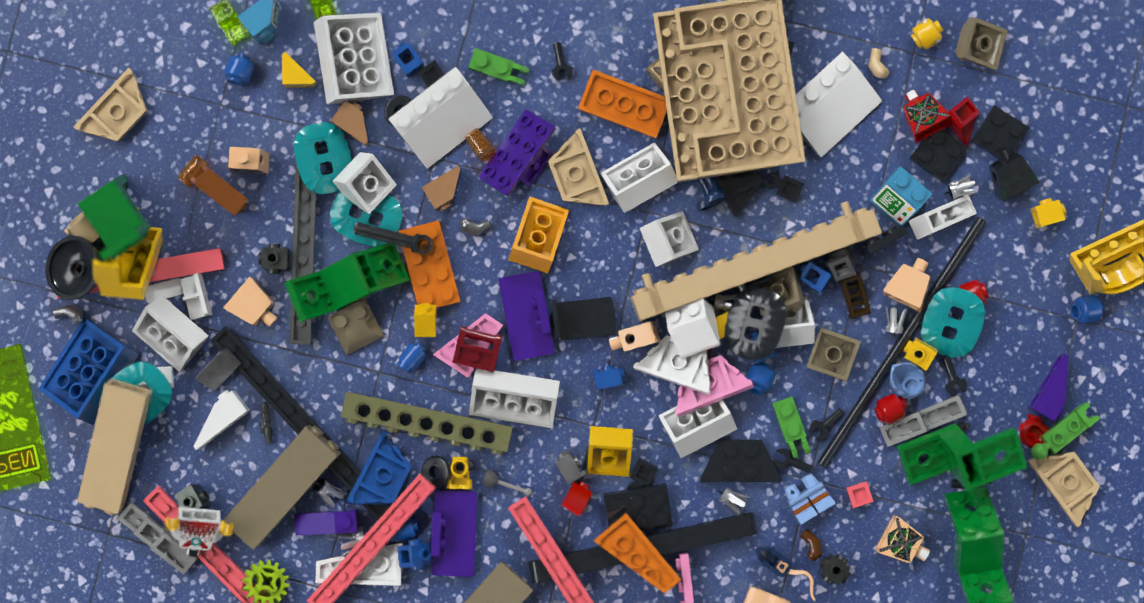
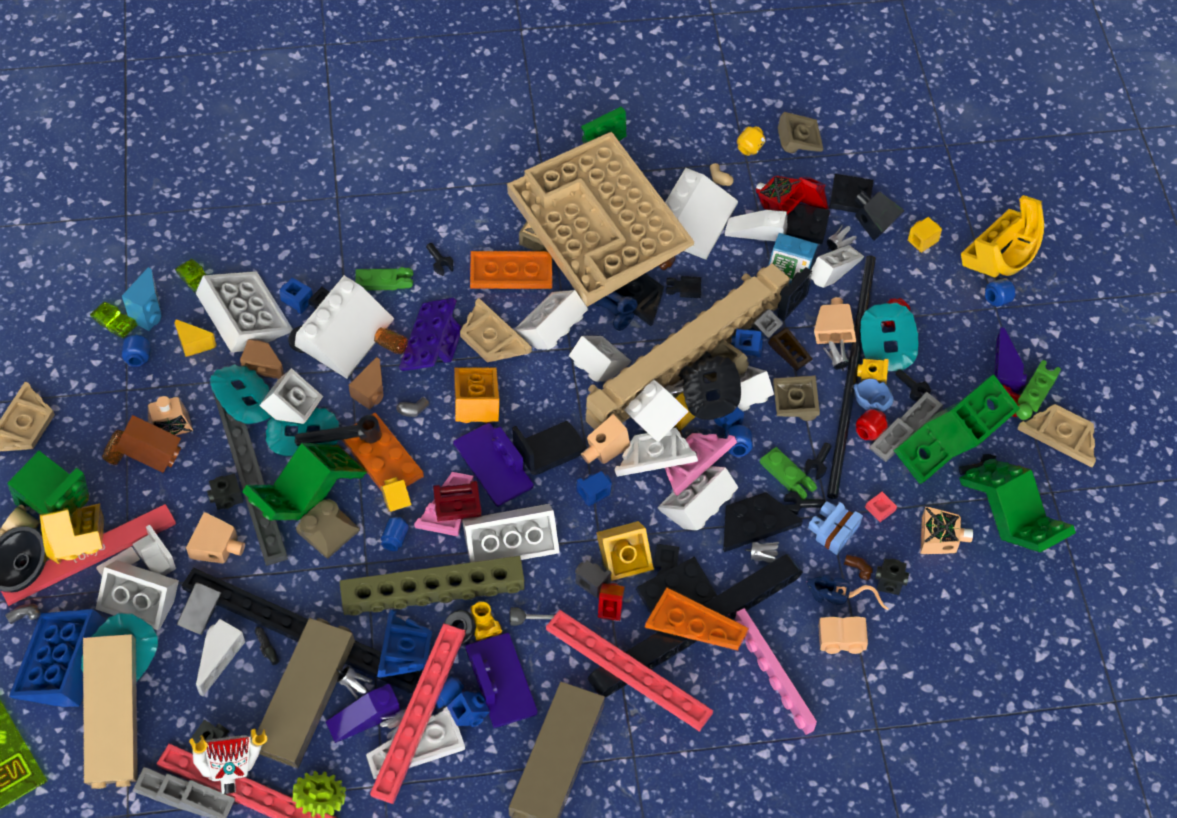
camera: 20 degrees left, 30 degrees down
(884, 144) = (758, 225): none -> white slope

